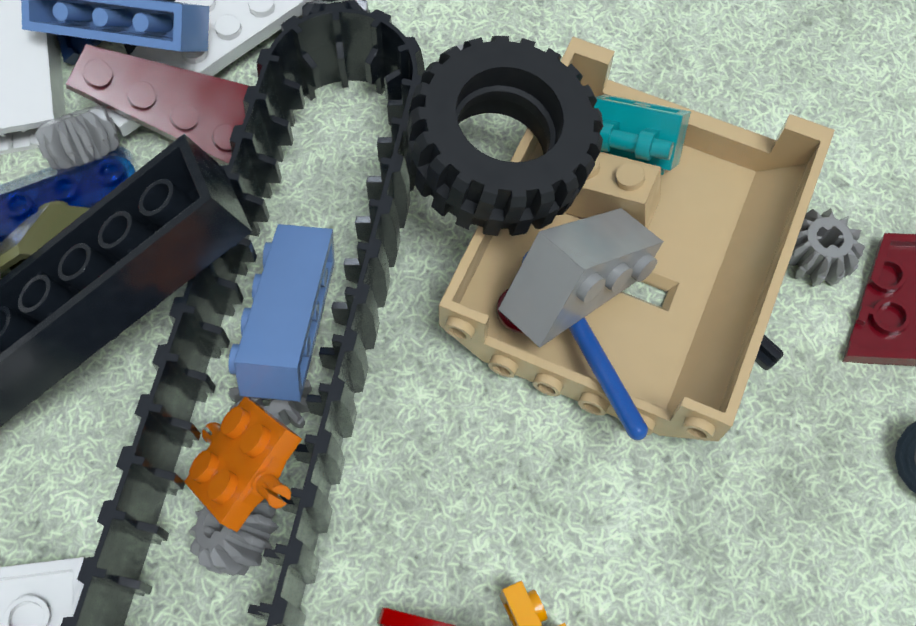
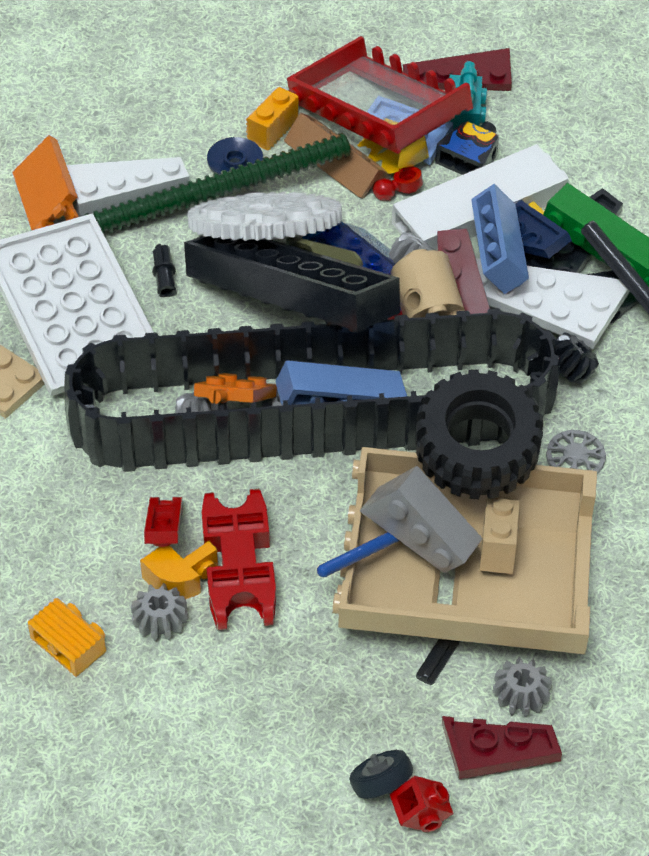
camera: 75 degrees right, 15 degrees down
(159, 114) = (427, 284): none -> tan cylinder
(529, 549) = (240, 579): none -> red piece
(642, 131) = (547, 535): teal brick -> none

